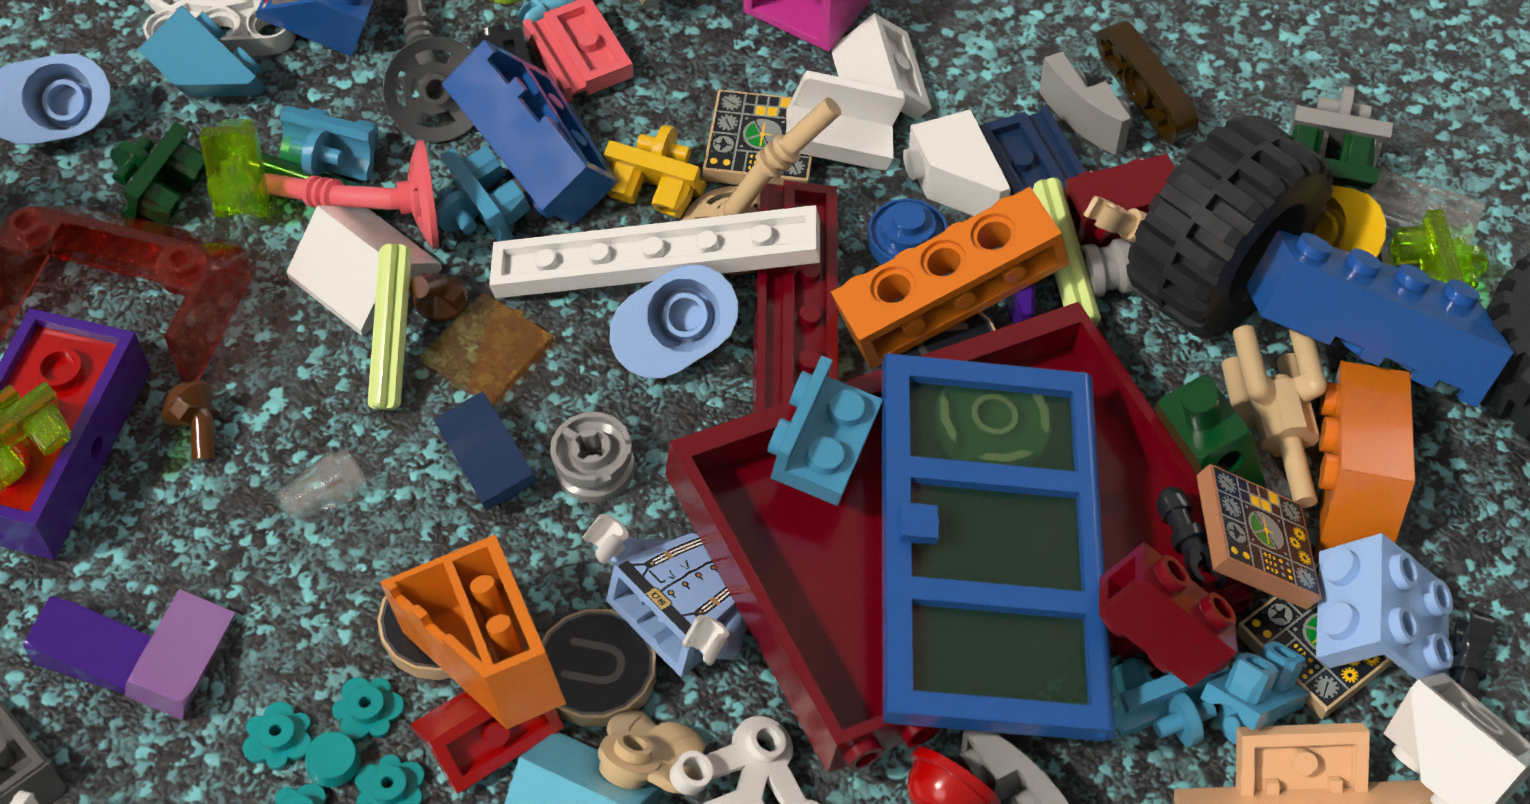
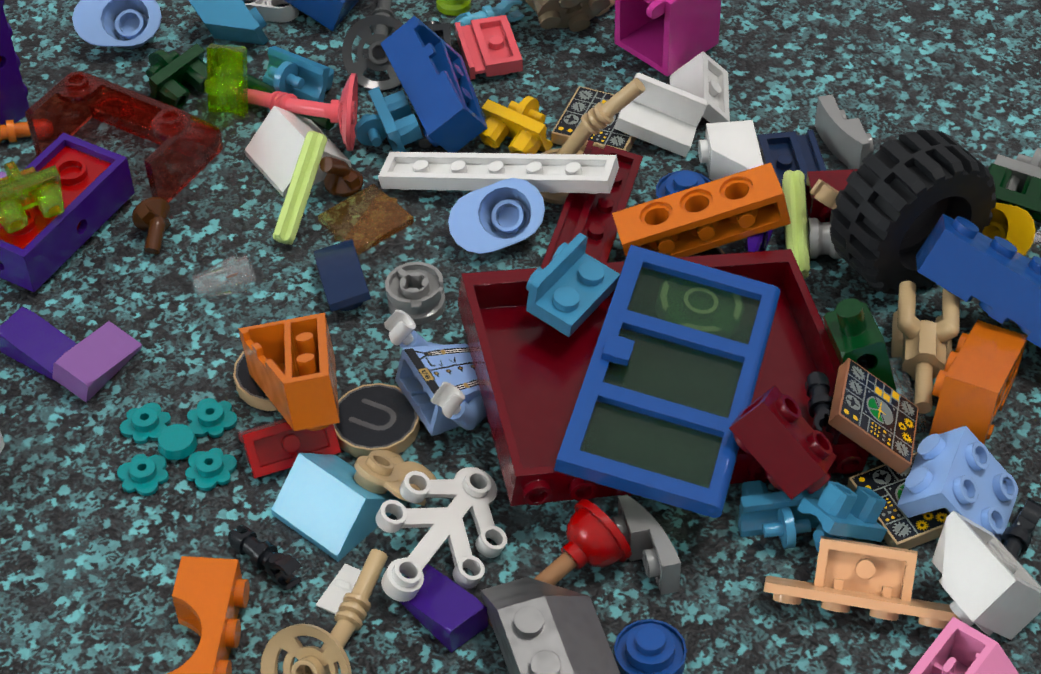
camera: 15 degrees right, 10 degrees down
(1147, 82) = (886, 113): dark brown beam -> none

